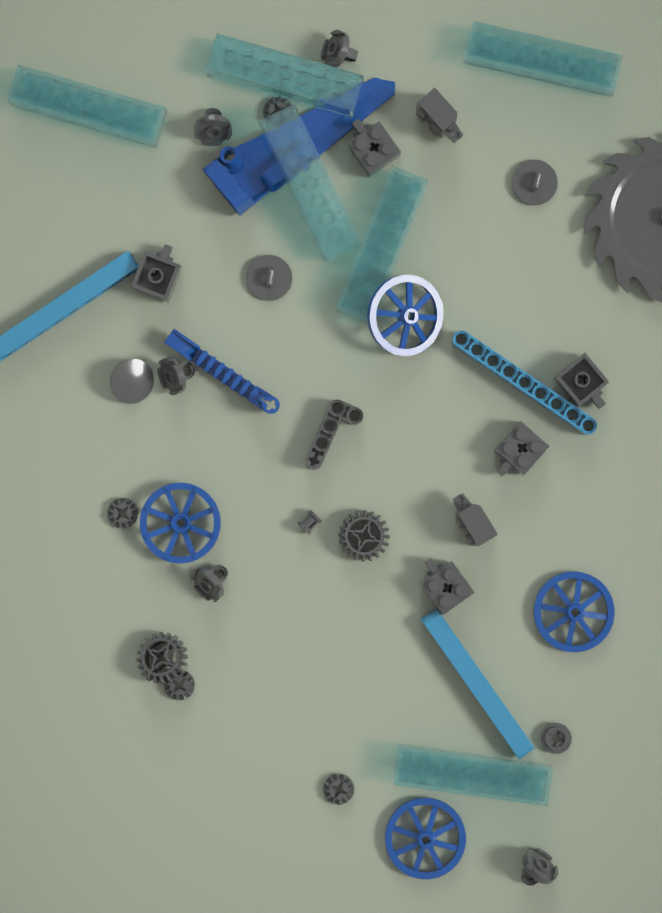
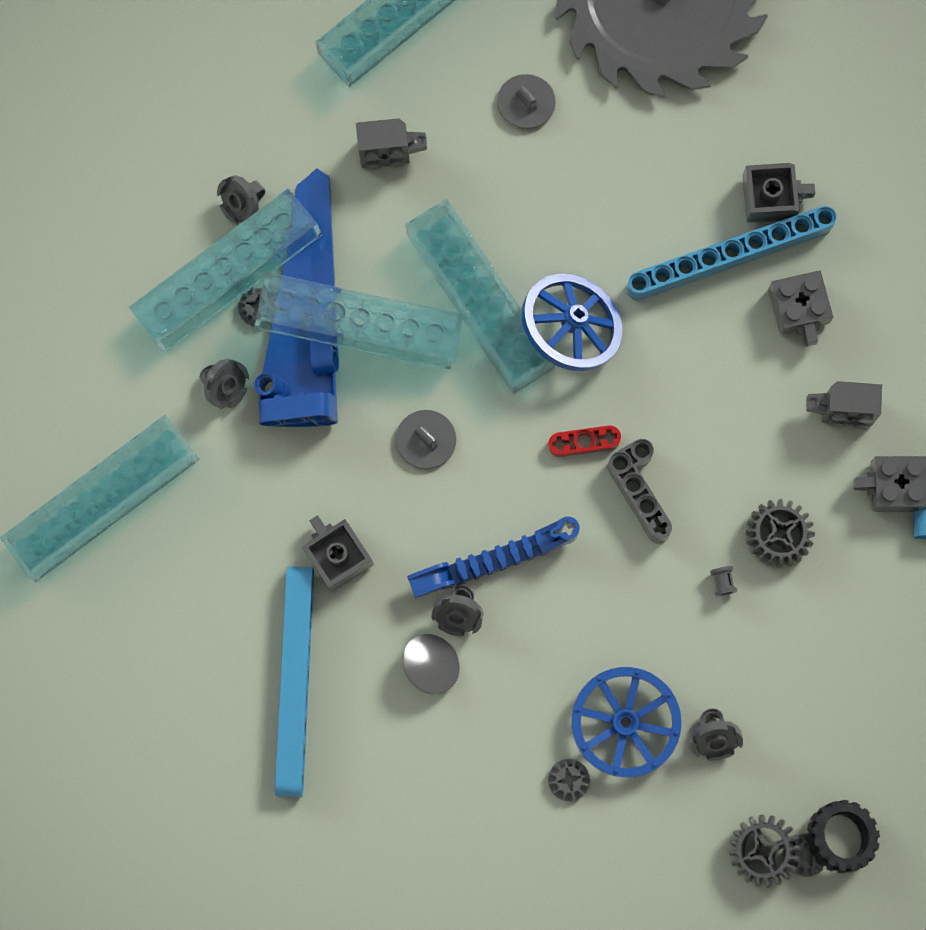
camera: 50 degrees left, 10 degrees down
(218, 712) = (865, 824): none -> black tyre
(323, 369) = (564, 436): none -> red beam
(376, 137) = (355, 232): dark grey hinge -> none

